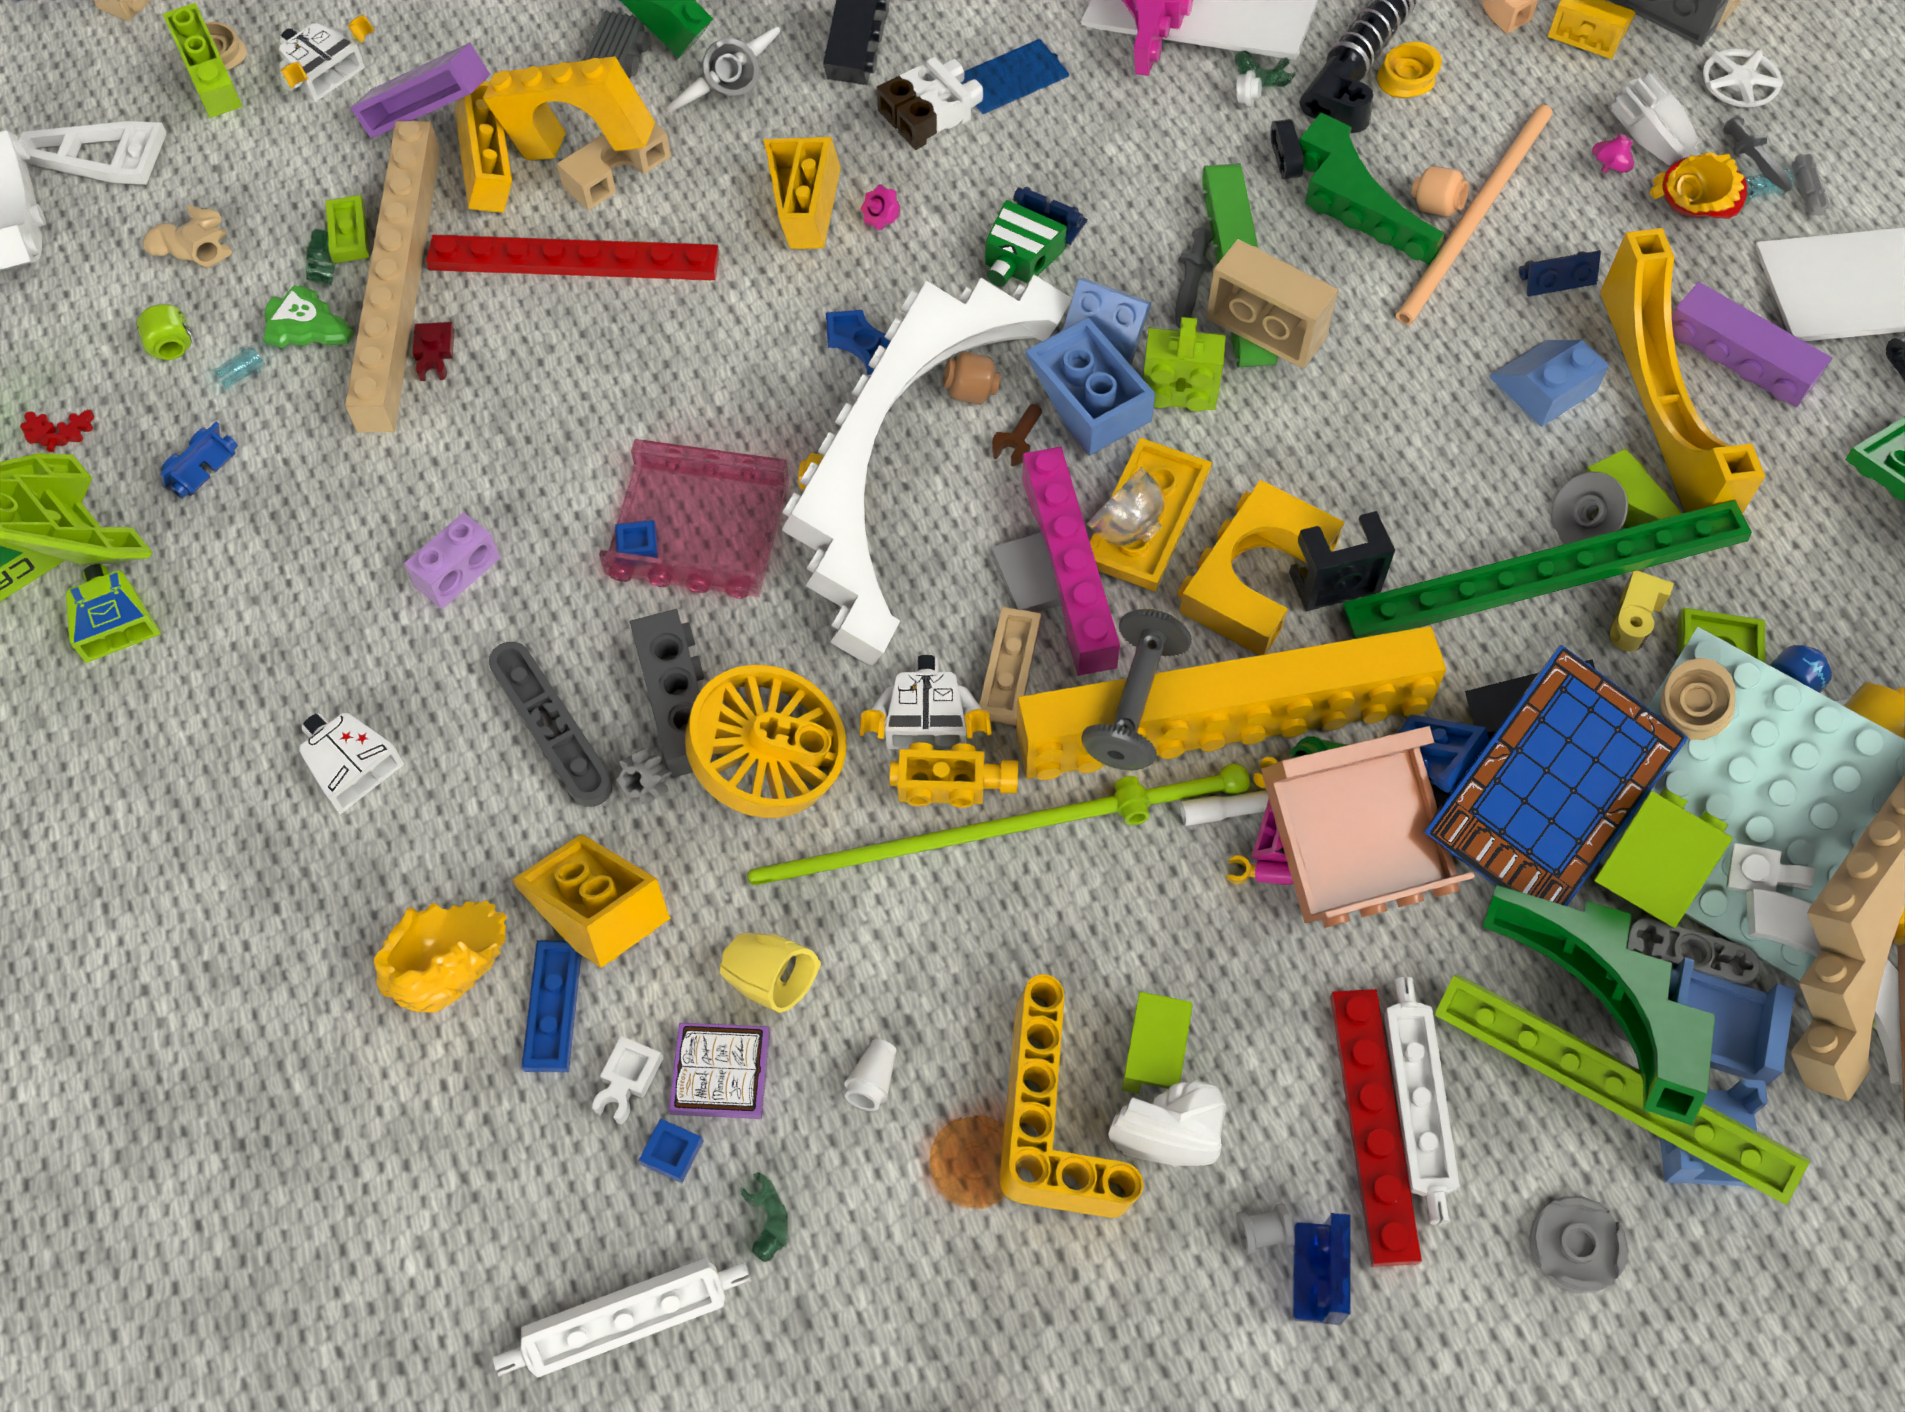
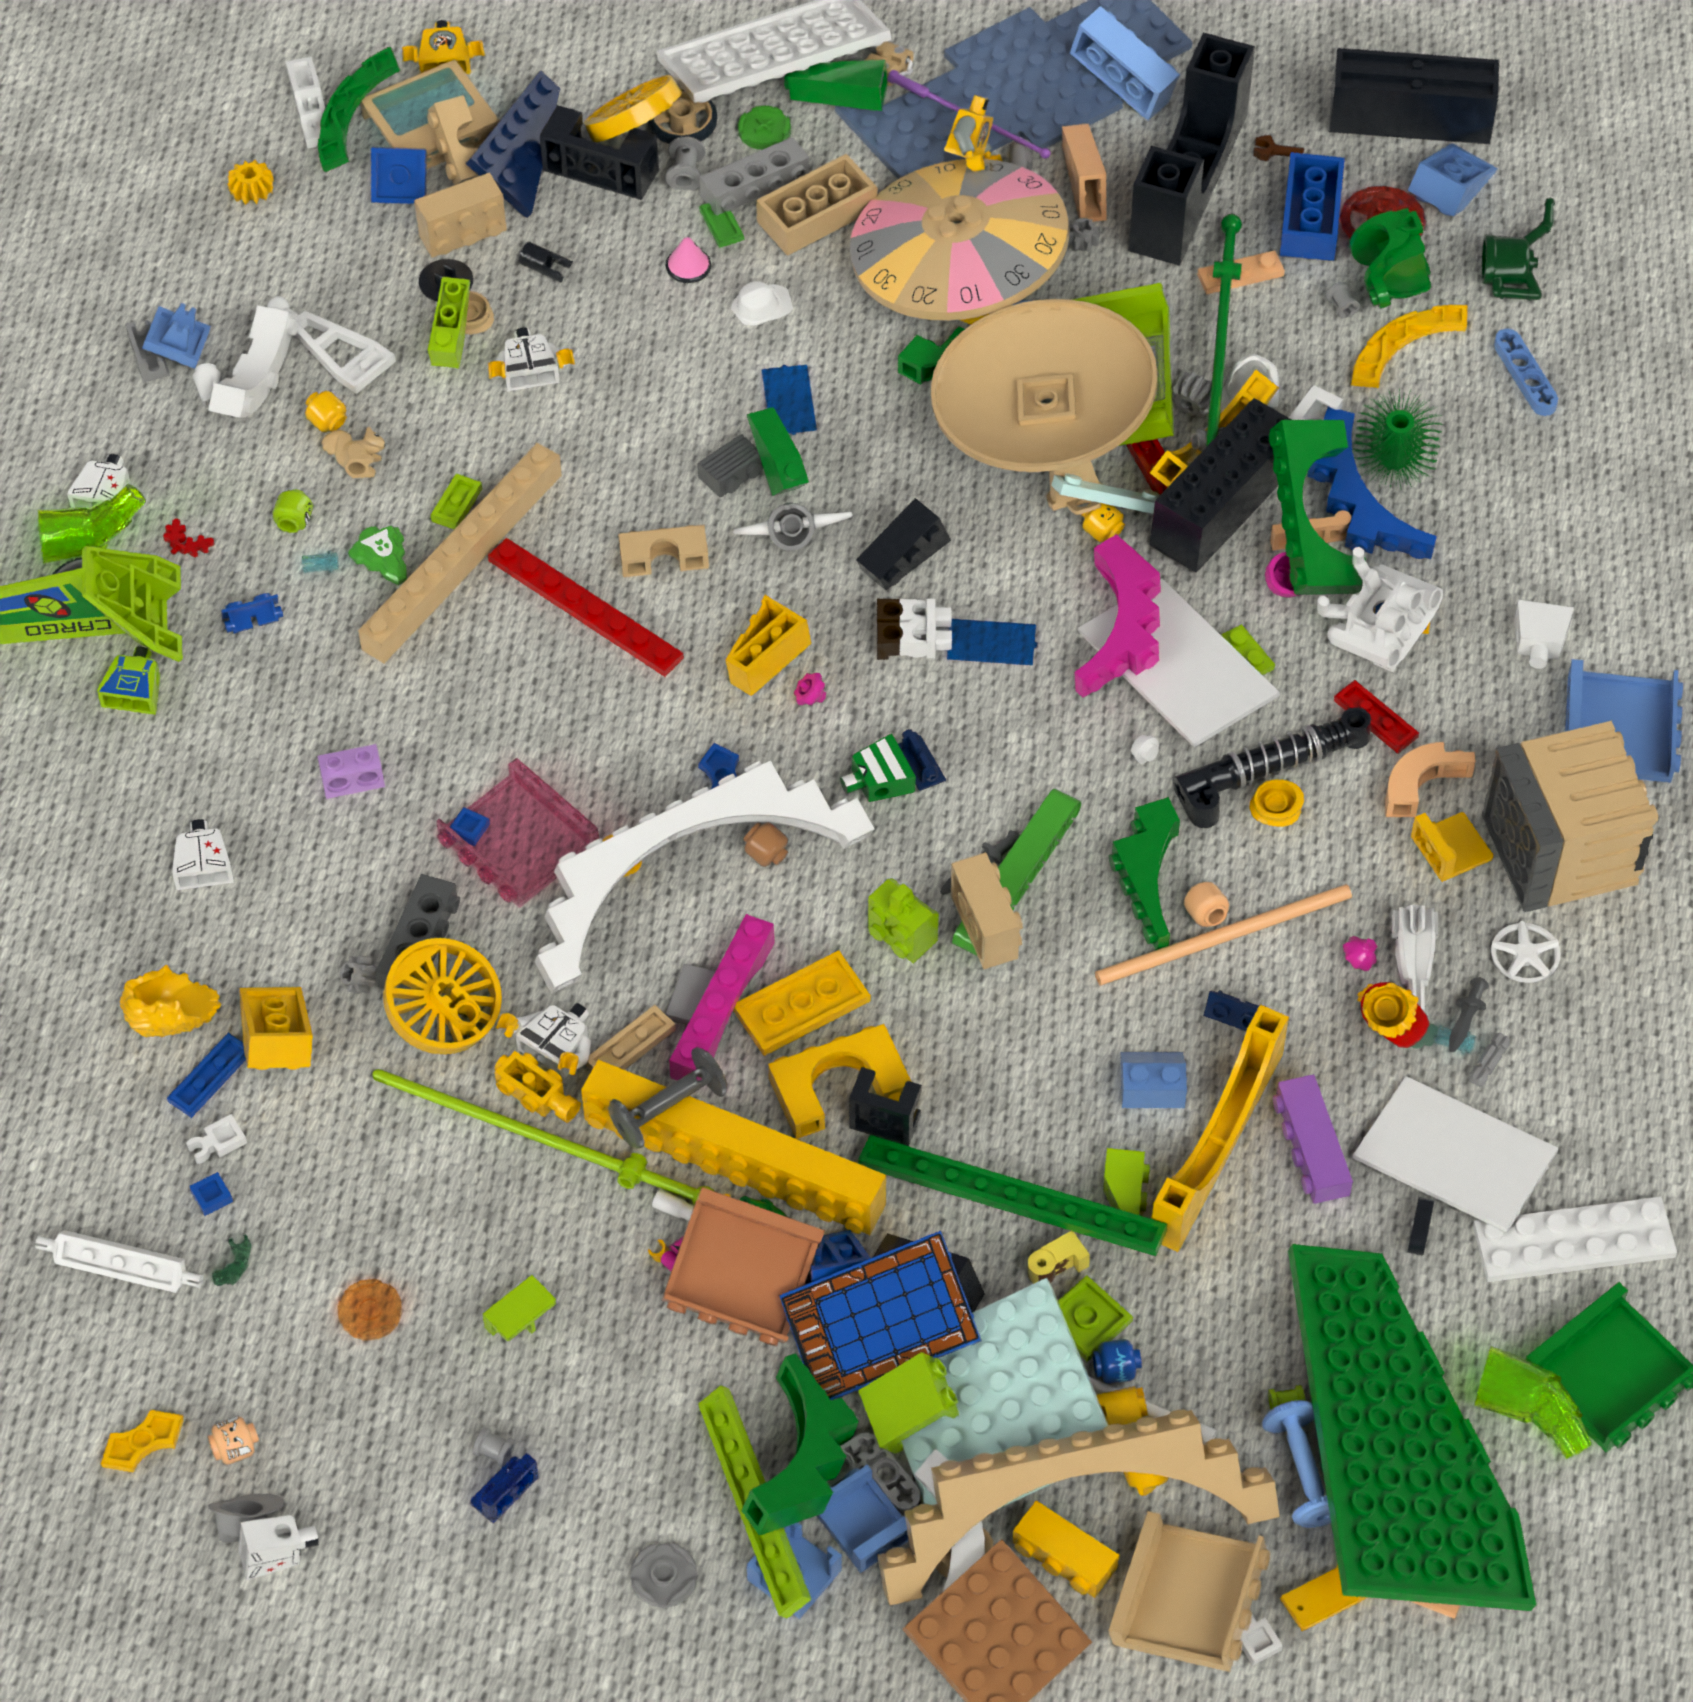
camera: 35 degrees right, 5 degrees down
(125, 214) = (325, 411): none -> yellow head
(151, 36) = (432, 274): none -> black piece
(317, 259) = (420, 517): clear green piece -> none
(421, 90) = (565, 430): medium lavender brick -> none
(431, 345) = (448, 617): dark red plate -> none
(482, 153) = (583, 491): yellow brick -> none
(570, 751) = (329, 934): dark grey piece -> none
(593, 85) = (636, 489): yellow arch -> none
(719, 1070) = (272, 1170): tile -> none
(755, 966) = (335, 1125): light yellow helmet -> none
(871, 1077) = (349, 1226): white cone -> none
(1017, 437) = (767, 902): reddish brown bar -> none
(1040, 1111) = (424, 1301): yellow beam -> none
(1091, 386) = (833, 895): medium blue slope -> none
(1113, 312) = (878, 857): medium blue plate -> none
(1131, 512) = (777, 991): clear cylinder -> none
(1175, 1129) = (487, 1357): white hair -> none
(1269, 77) = (1174, 751): clear green piece -> none
(1287, 149) = (1124, 815): black beam -> none
(1375, 1129) = (607, 1438): red plate -> none
(1421, 1100) = (645, 1441): white plate -> none
(1578, 501) = (1086, 1174): light grey dish -> none
(1698, 698) = (1001, 1318): tan piece -> none
(1761, 869) = (954, 1442): white plate -> none

